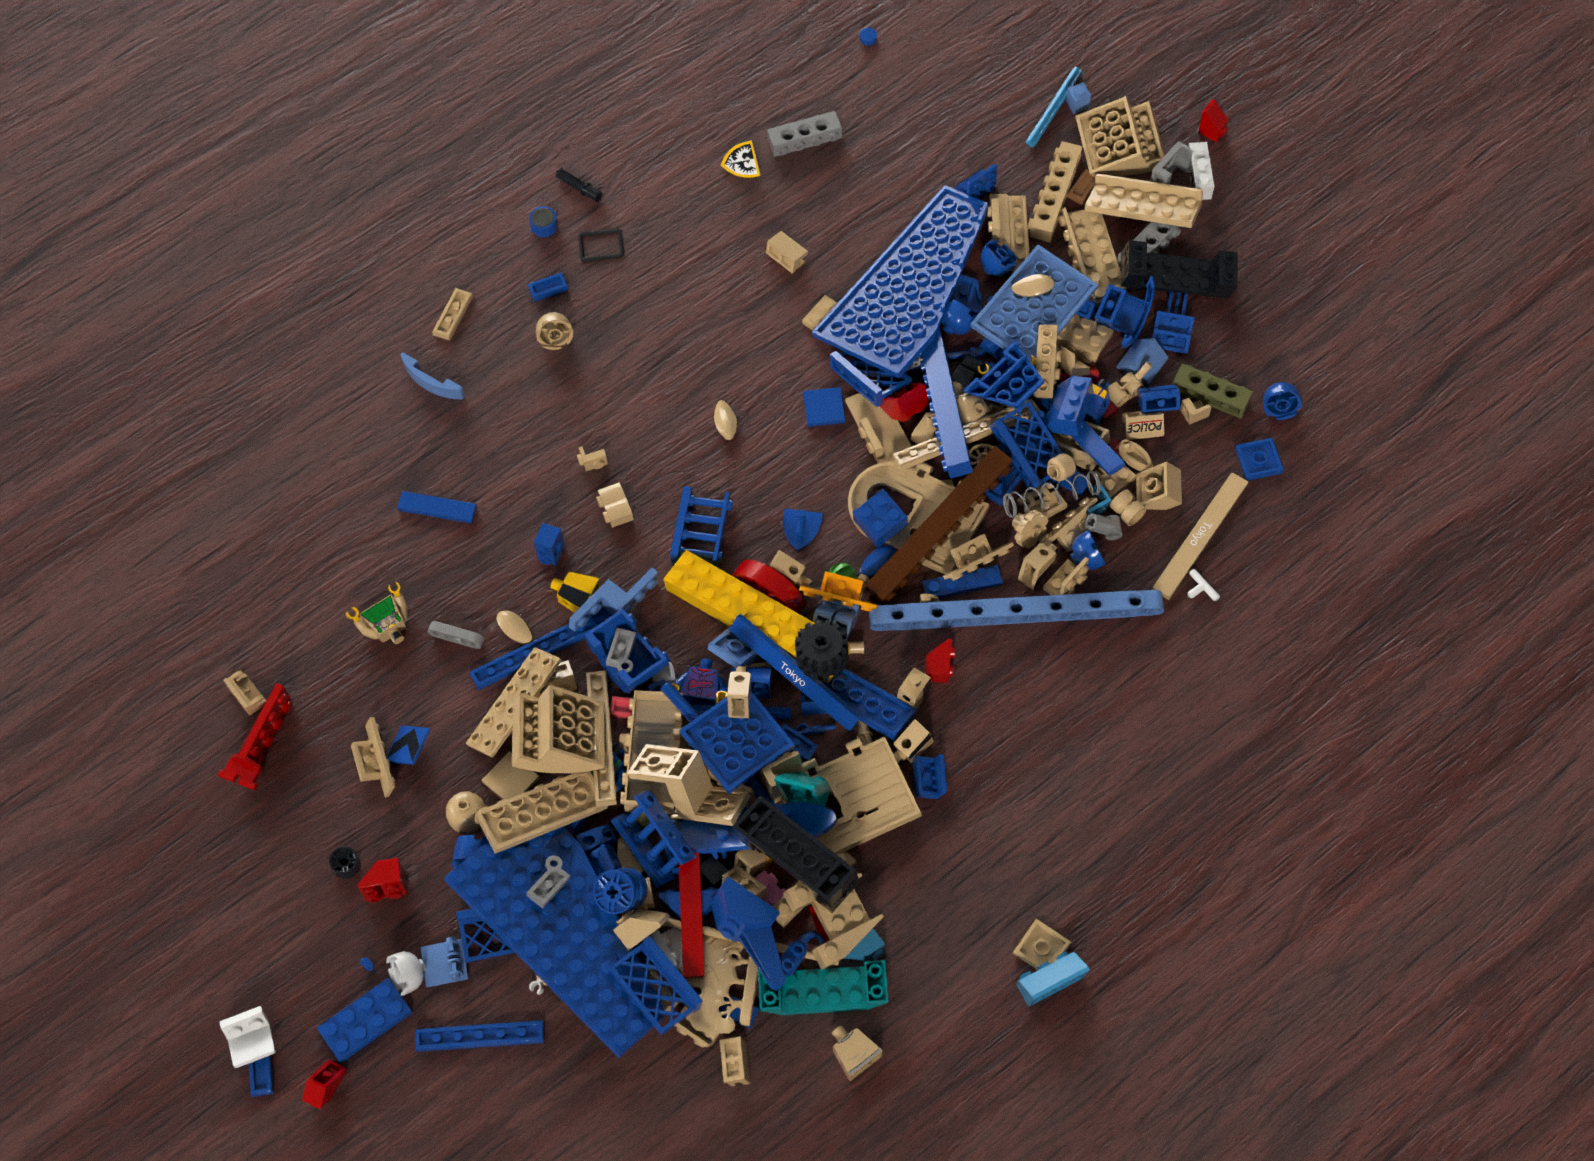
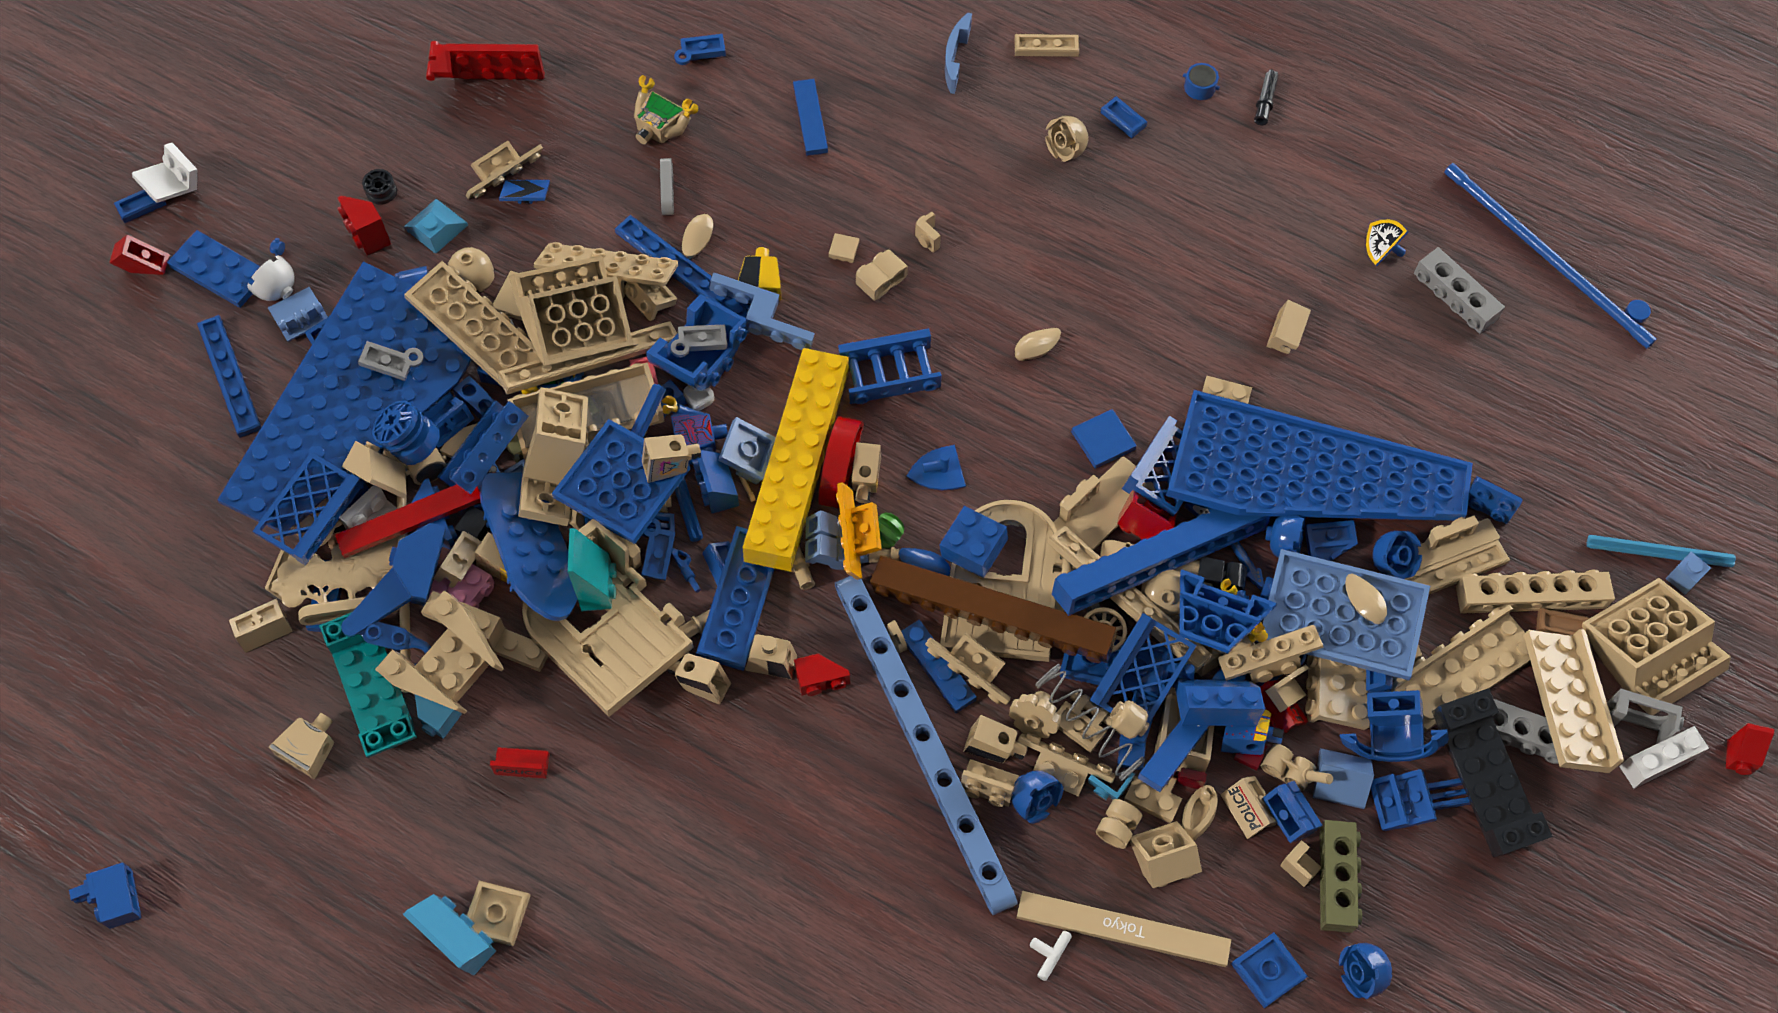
camera: 65 degrees right, 0 degrees up
(245, 692) = (536, 30): tan hinge -> none
(327, 566) = (700, 48): none -> blue hinge
(404, 829) = (435, 226): none -> dark azure slope
(549, 544) = (800, 226): blue brick -> none
(575, 524) = (844, 248): none -> tan piece
(598, 233) = (1185, 150): black piece -> none
(711, 92) = (1637, 331): none -> blue piece
(789, 669) = (737, 520): blue tile -> none
(797, 853) = (480, 581): black plate -> none
(821, 650) = (758, 526): black wheel -> none
(928, 895) = (520, 763): none -> red panel
(930, 776) = (667, 711): blue bracket -> none
(1108, 525) = (1083, 809): light grey piece -> none

